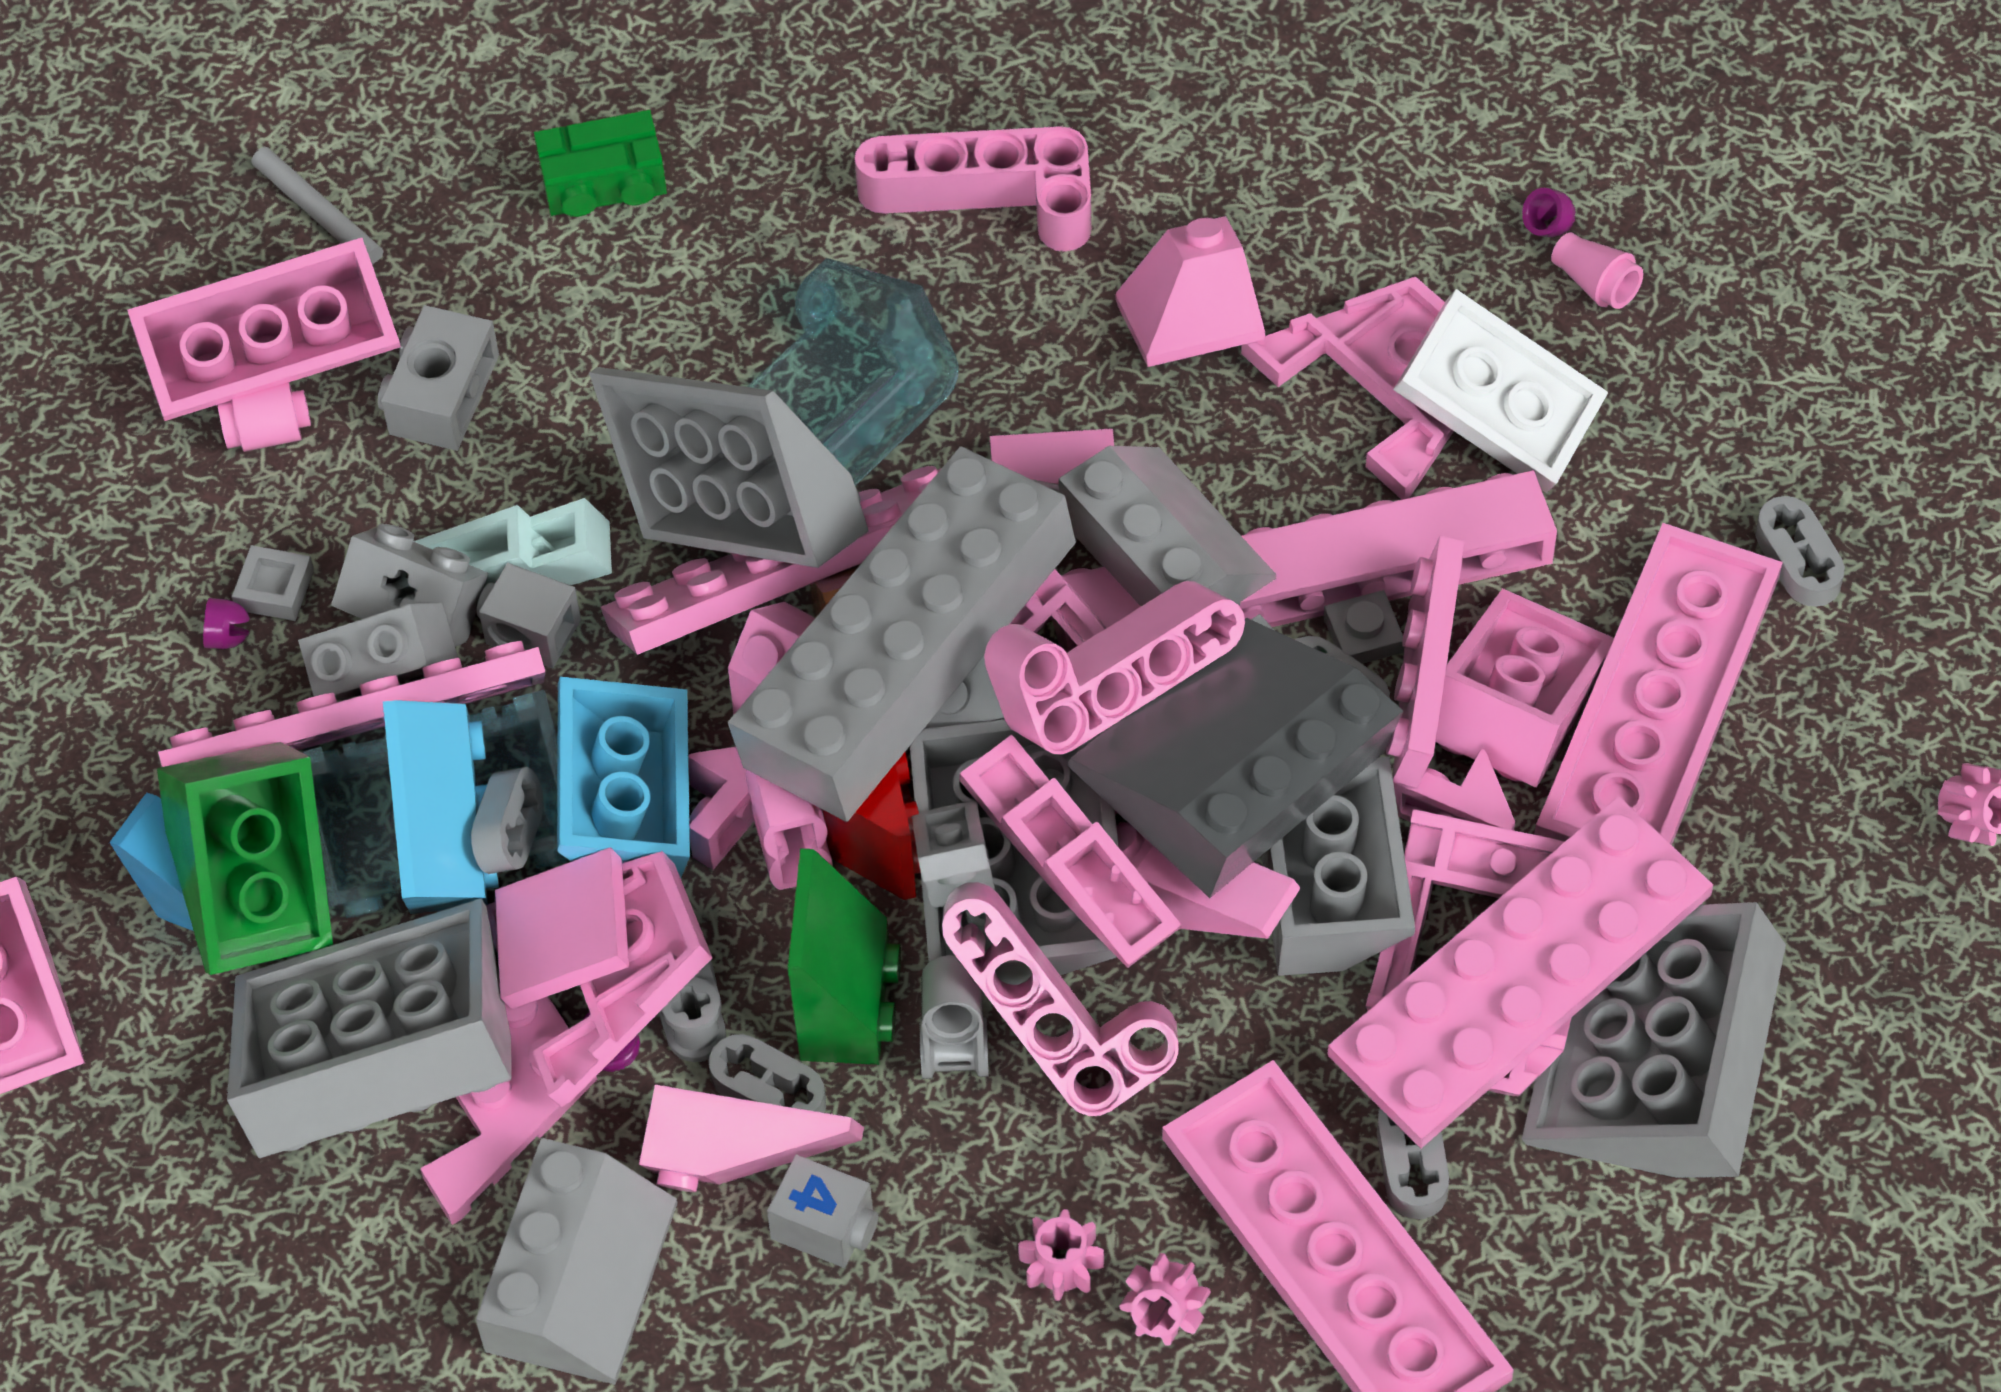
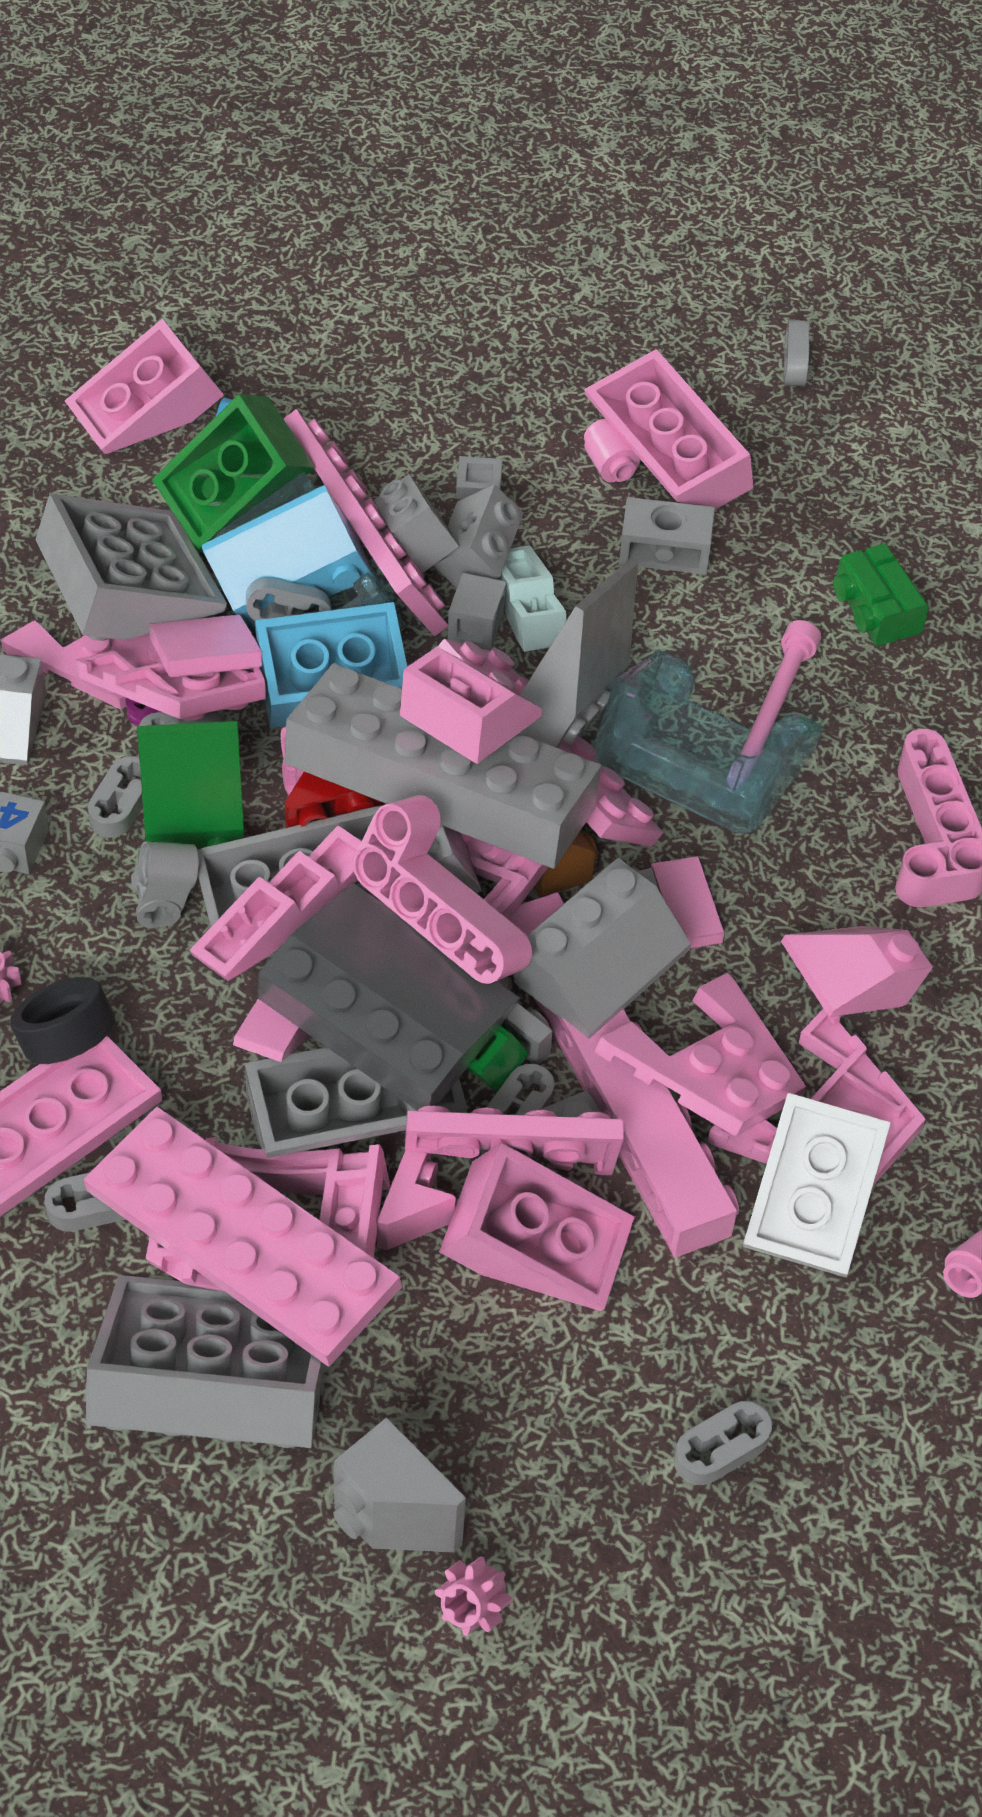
camera: 75 degrees right, 5 degrees down
(123, 171) = (796, 352): none -> light grey beam
(219, 624) = (441, 459): magenta hinge -> none
(312, 201) = (802, 458): light grey bar -> none
(661, 267) = (798, 645): none -> bright pink piece
(727, 1138) = (64, 761): bright pink slope -> none
(881, 554) = (463, 705): none -> bright pink slope
(951, 849) = (271, 830): light grey slope -> none
(1048, 993) = (167, 918): bright pink beam -> none
(1114, 1151) = (62, 1020): none -> black tyre
(1332, 443) = (726, 1077): none -> bright pink wing
(1663, 684) = (546, 1340): bright pink plate -> none
(1862, 854) = (396, 1495): none -> light grey slope

